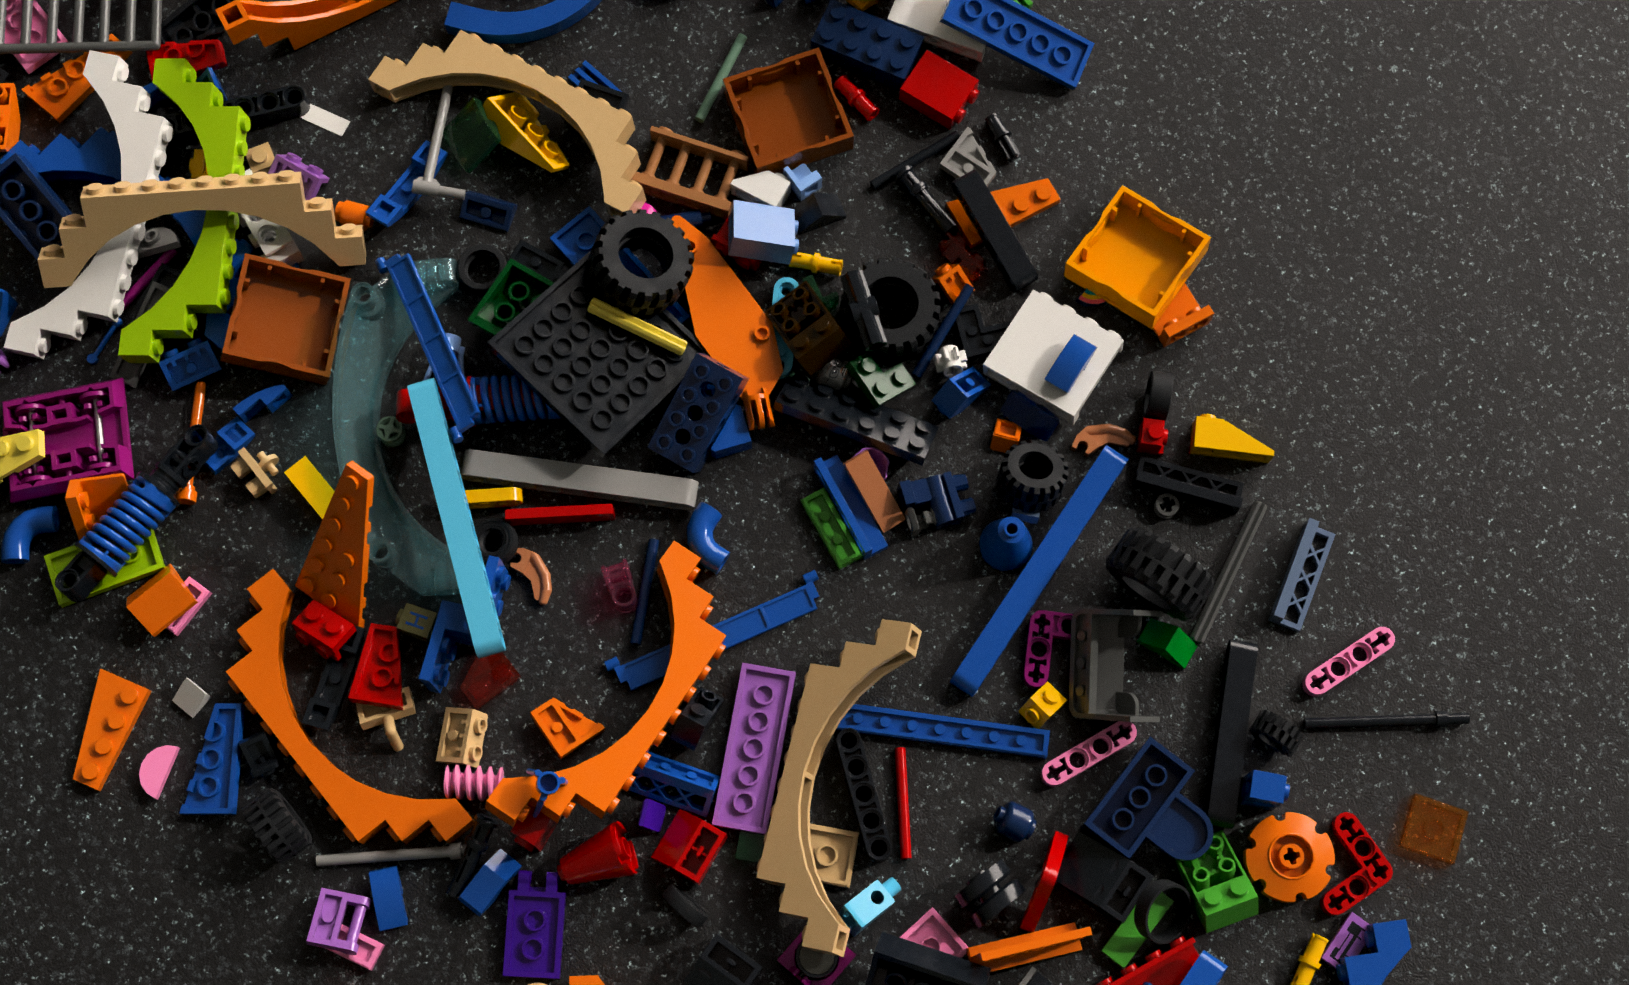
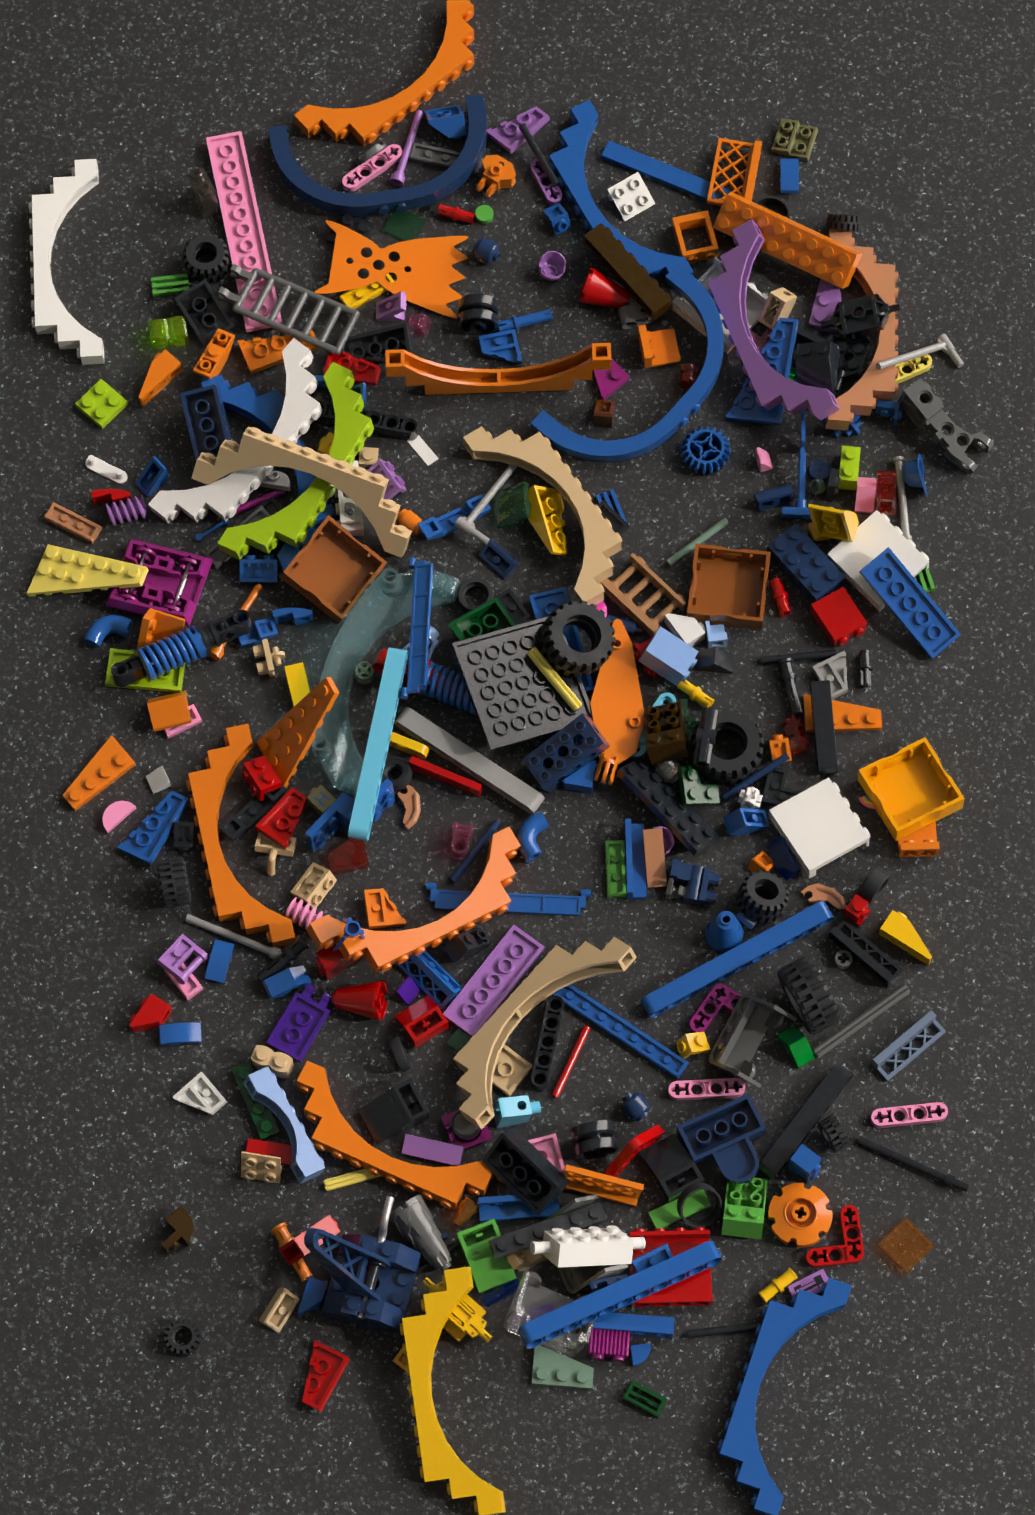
camera: 30 degrees right, 5 degrees down
(1070, 363) = (825, 834): blue slope -> none

